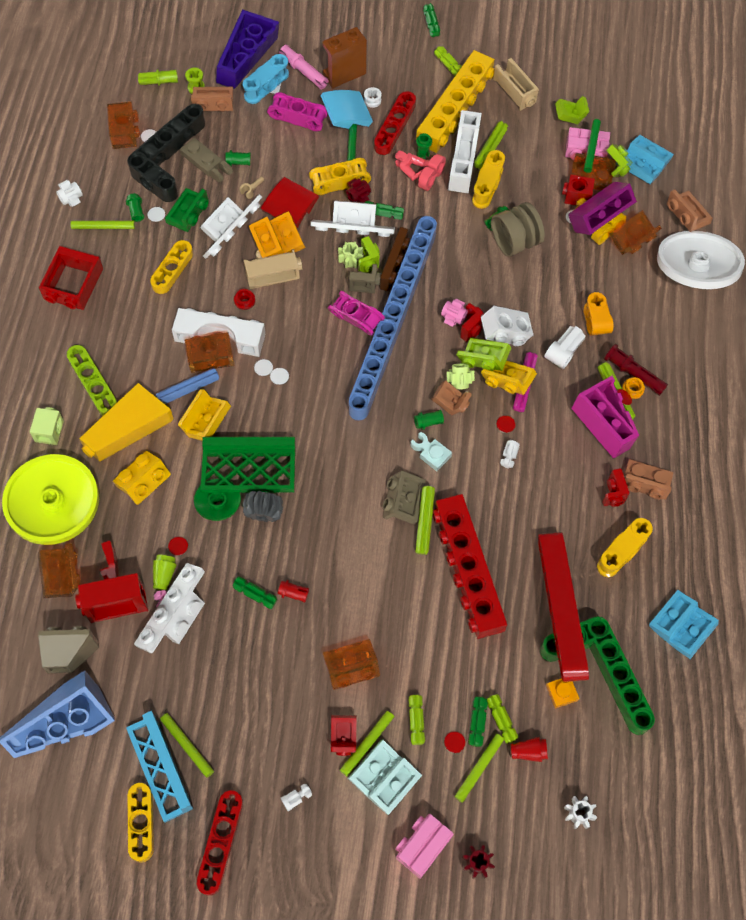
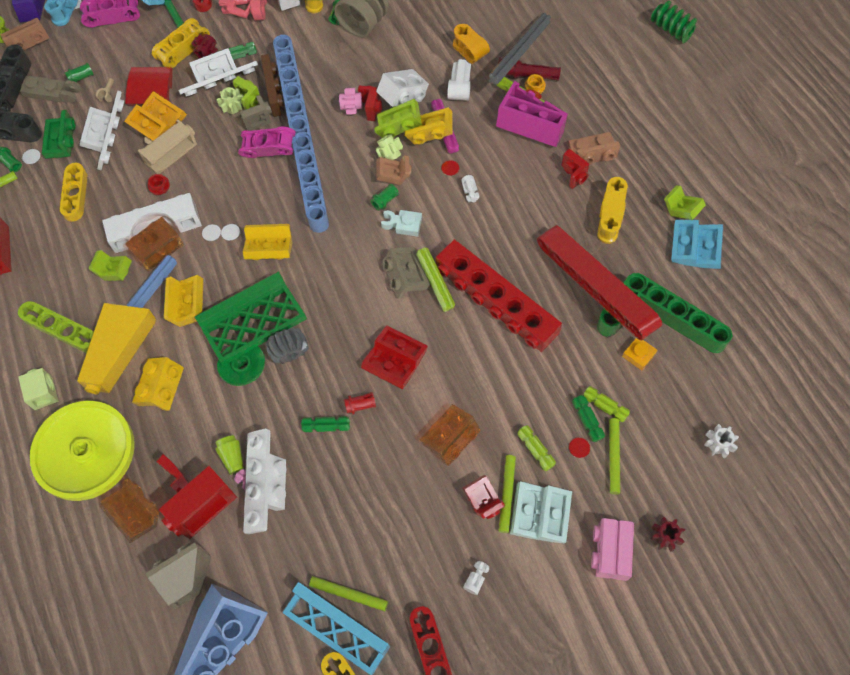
camera: 25 degrees left, 0 degrees up
(162, 352) = (108, 267): none -> lime bracket
(178, 546) = (229, 425): red sticker -> none
(303, 404) = (267, 241): none -> yellow bracket
(347, 568) = (394, 357): none -> red slope
(532, 750) = (648, 414): red cone -> none
(639, 346) = (519, 49): none -> dark grey axle
(693, 580) = (682, 205): none -> lime bracket

